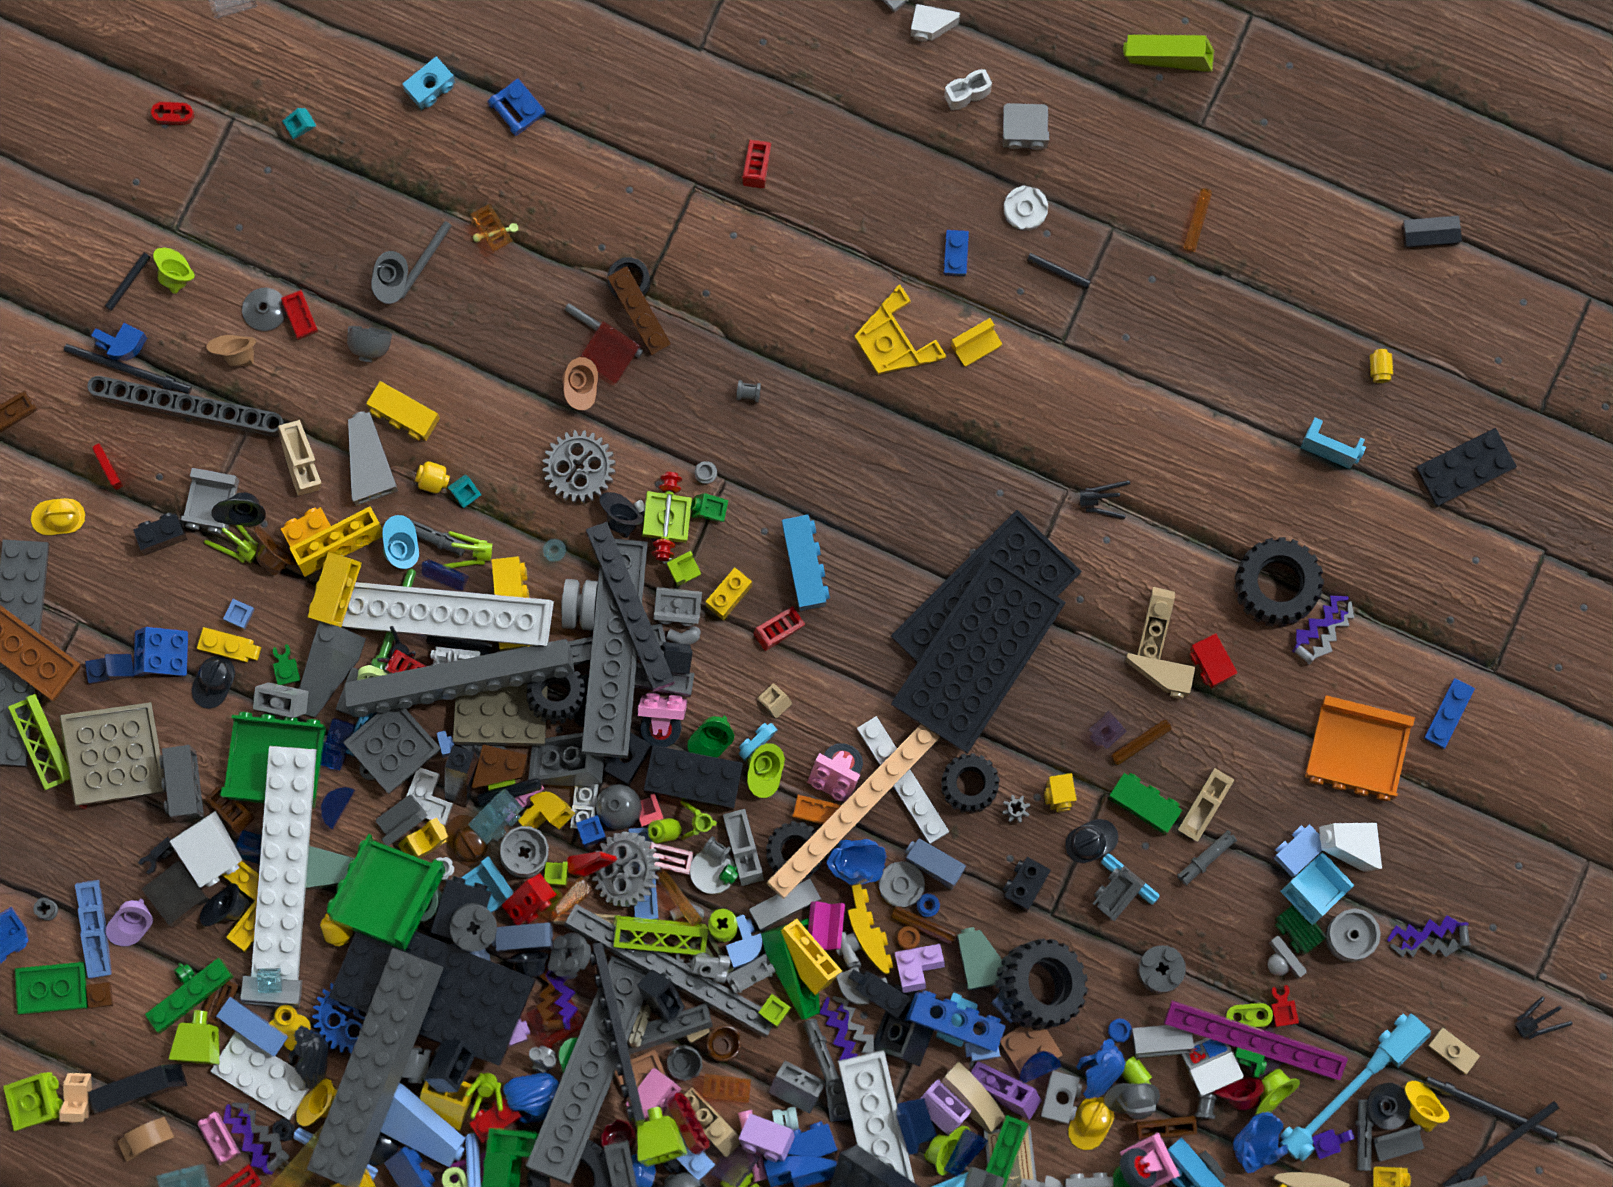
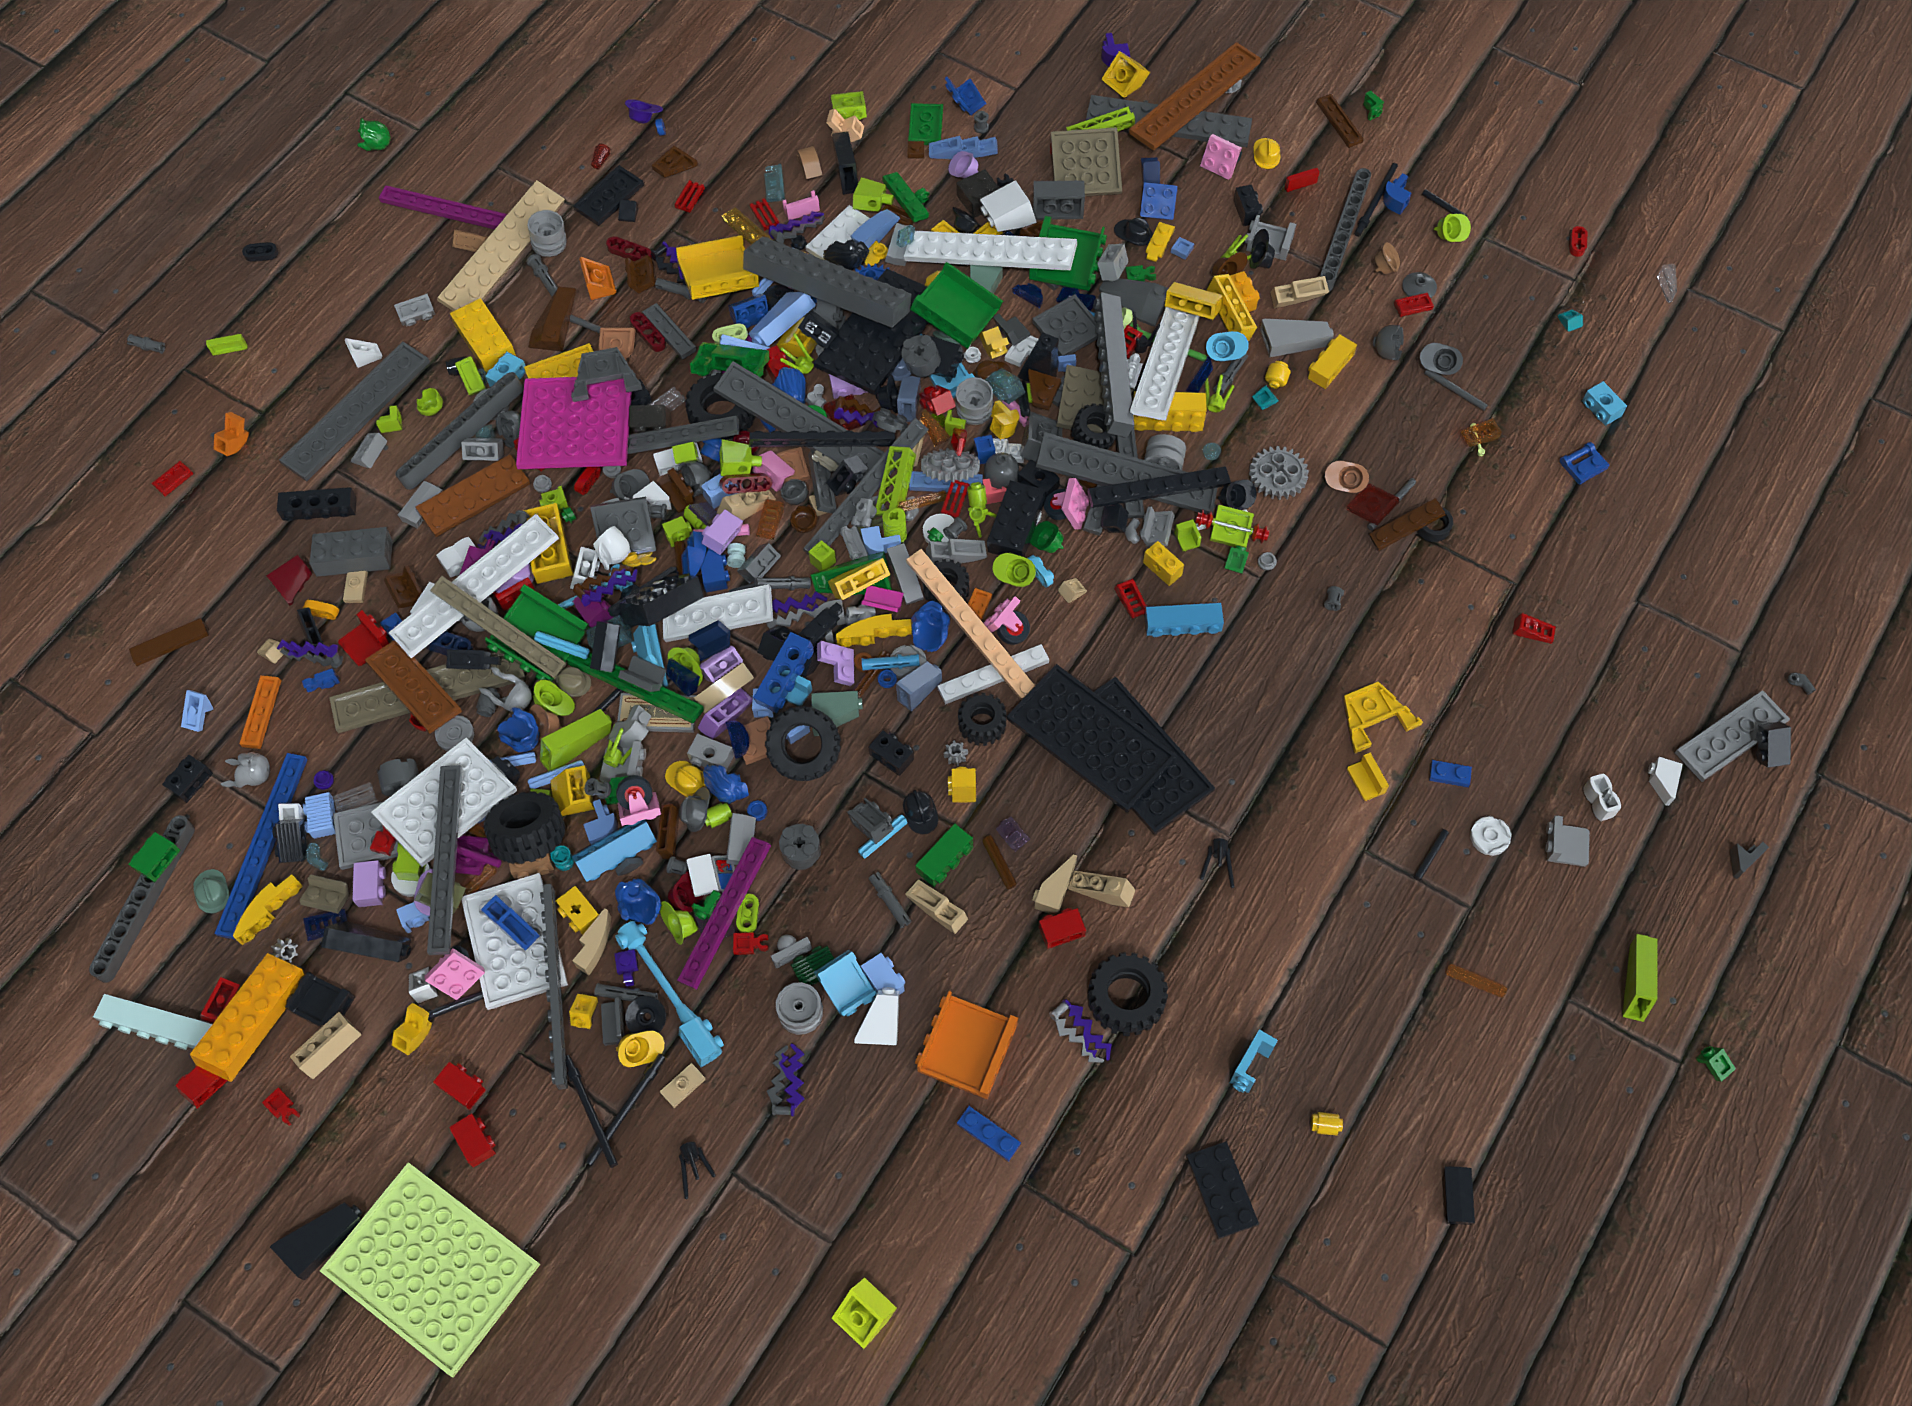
camera: 100 degrees right, 15 degrees down
(80, 572) = (1221, 156): none -> bright pink plate
(910, 896) = (890, 662): none -> dark azure pin

